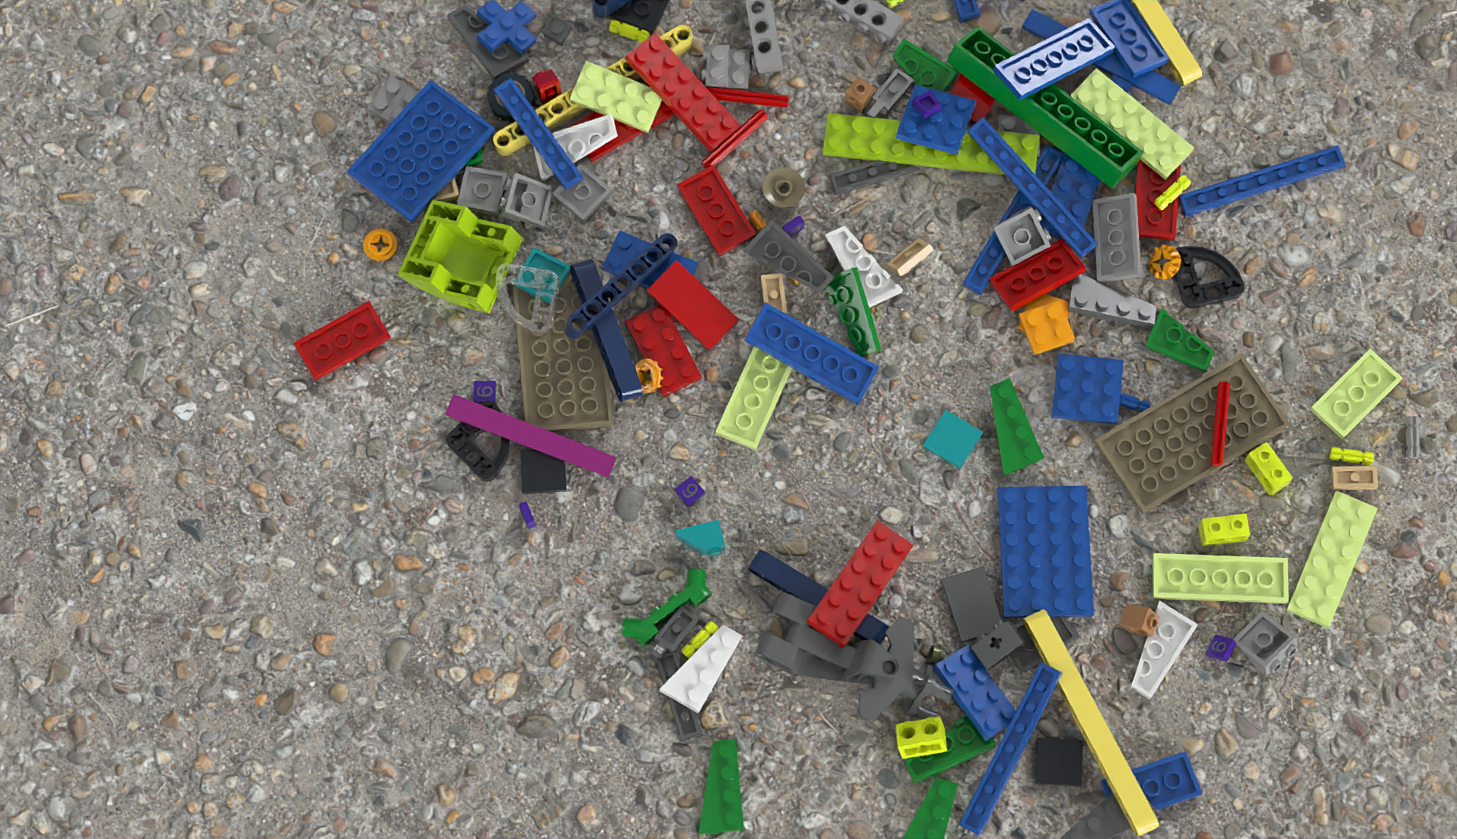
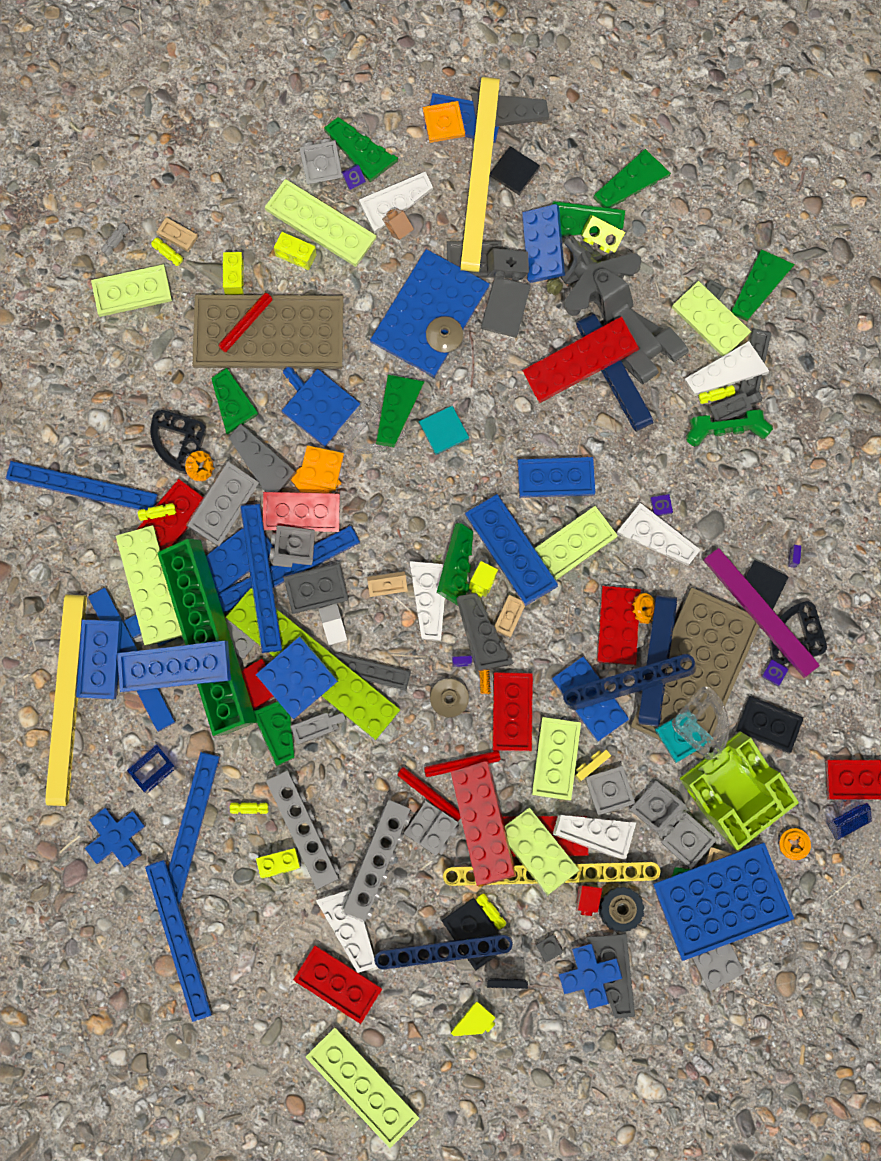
camera: 155 degrees left, 5 degrees up
(339, 293) = (850, 821): none -> clear blue tile
(463, 341) = (769, 724): none -> black tile
(538, 134) = (620, 857): blue tile -> none
(609, 211) = (598, 758): none -> light yellow plate
(649, 192) = (556, 759): none -> yellowish green plate
(683, 457) = (657, 535): none -> white wing
(692, 305) = (577, 644): red tile -> none
(703, 538) = (673, 463): teal slope -> none
(752, 719) = (711, 319): none -> yellowish green plate
(767, 753) = (715, 288): none -> dark grey tile
(811, 456) = (556, 477): none -> blue plate
(820, 308) = (483, 579): none -> neon yellow brick
(859, 94) = (341, 738): medium nougat brick -> none
(926, 104) = (298, 690): dark purple tile -> none
(938, 193) = (332, 624): none -> white slope
(974, 215) = (315, 588): none -> dark grey tile
(1010, 749) = (544, 190): blue tile -> none
(1014, 542) = (447, 342): none -> dark tan dish
(1168, 764) = (443, 122): none -> light orange tile
(1233, 683) = (360, 149): none -> green wing
(1331, 559) = (232, 192): yellowish green plate -> none

